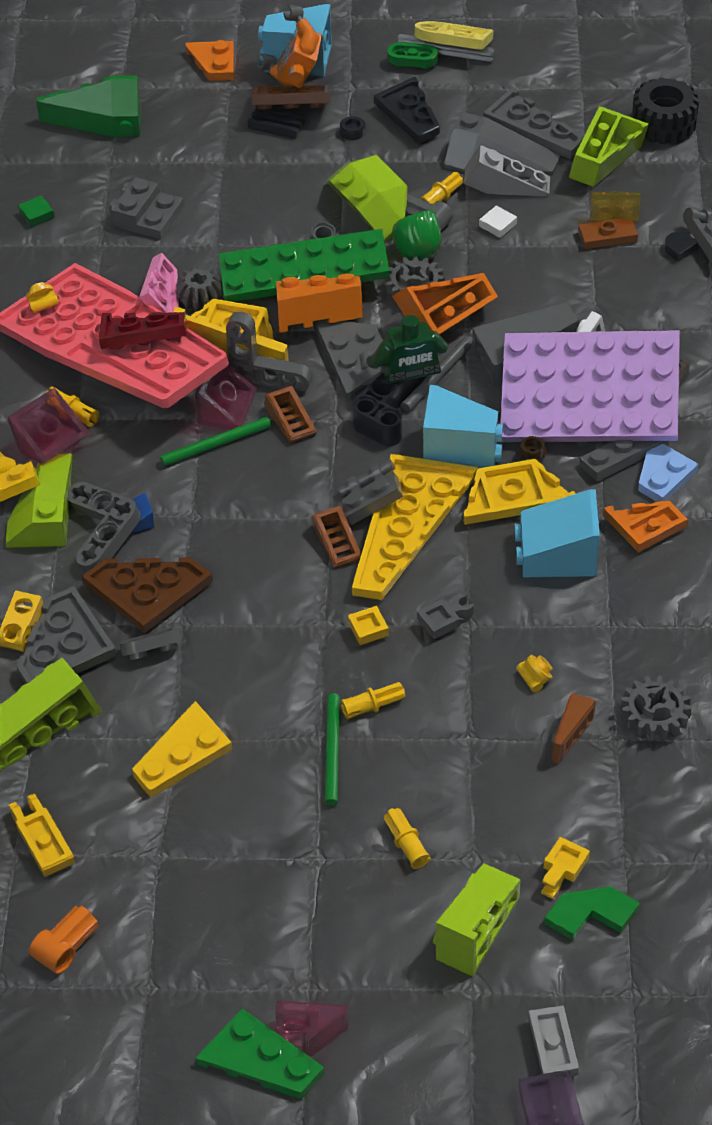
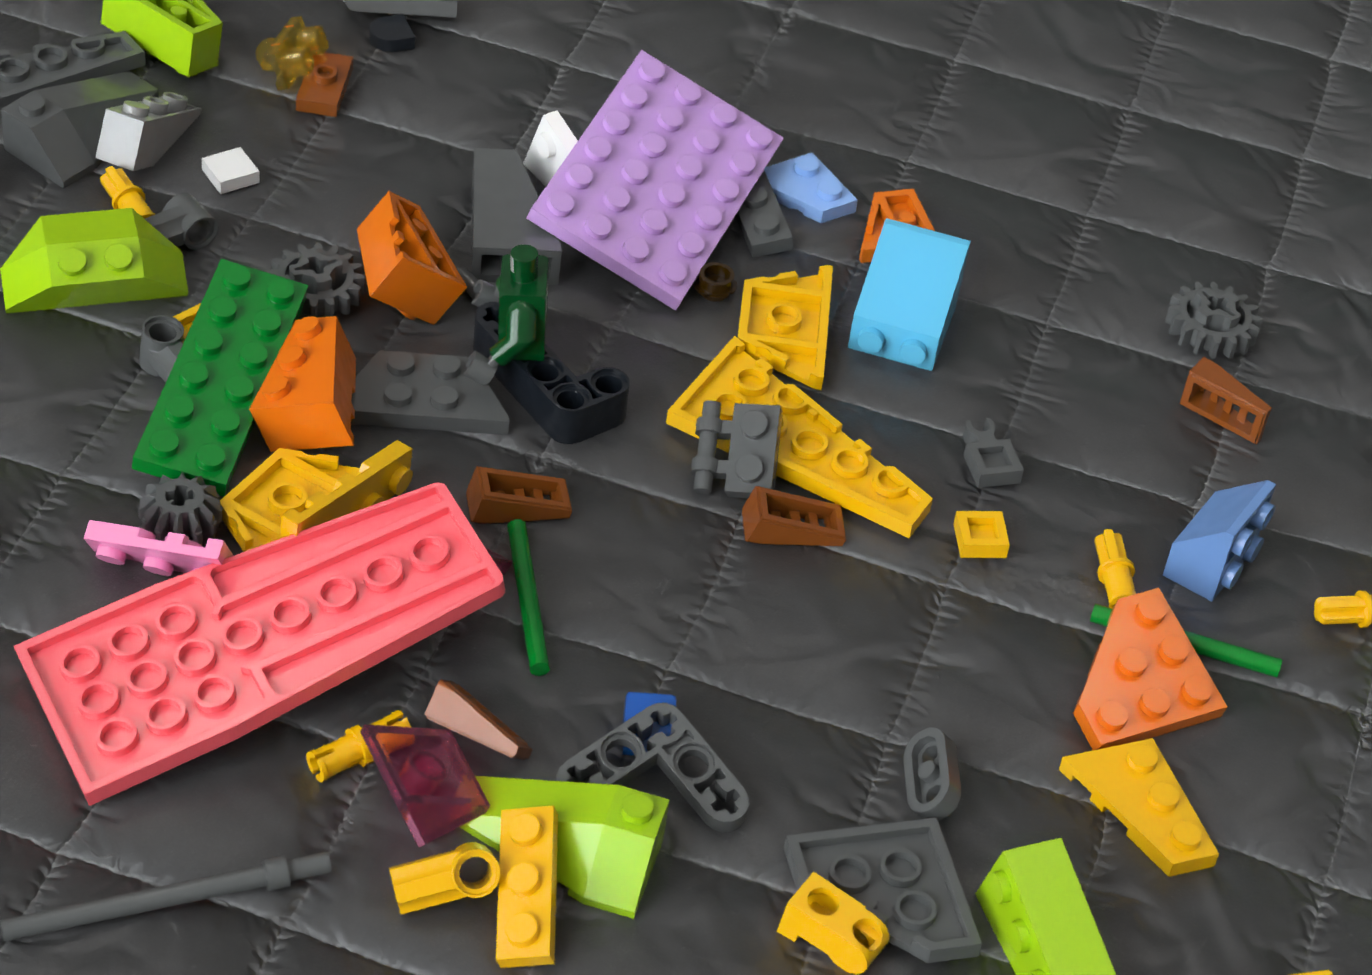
camera: 80 degrees left, 5 degrees down
(41, 297) = (103, 698): yellow plate -> none
(112, 431) = (464, 714): none -> slope
(131, 329) = (308, 576): dark red wing -> none
(147, 588) = (814, 754): reddish brown plate -> none
(247, 361) = (396, 465): dark grey beam -> none
(282, 727) = (1144, 677): none -> orange plate
(416, 743) = (1220, 539): none -> medium blue slope
(417, 235) = (244, 238): green piece -> none
(460, 430) = (672, 324): medium azure slope -> none
(535, 672) = (1115, 405): yellow plate -> none

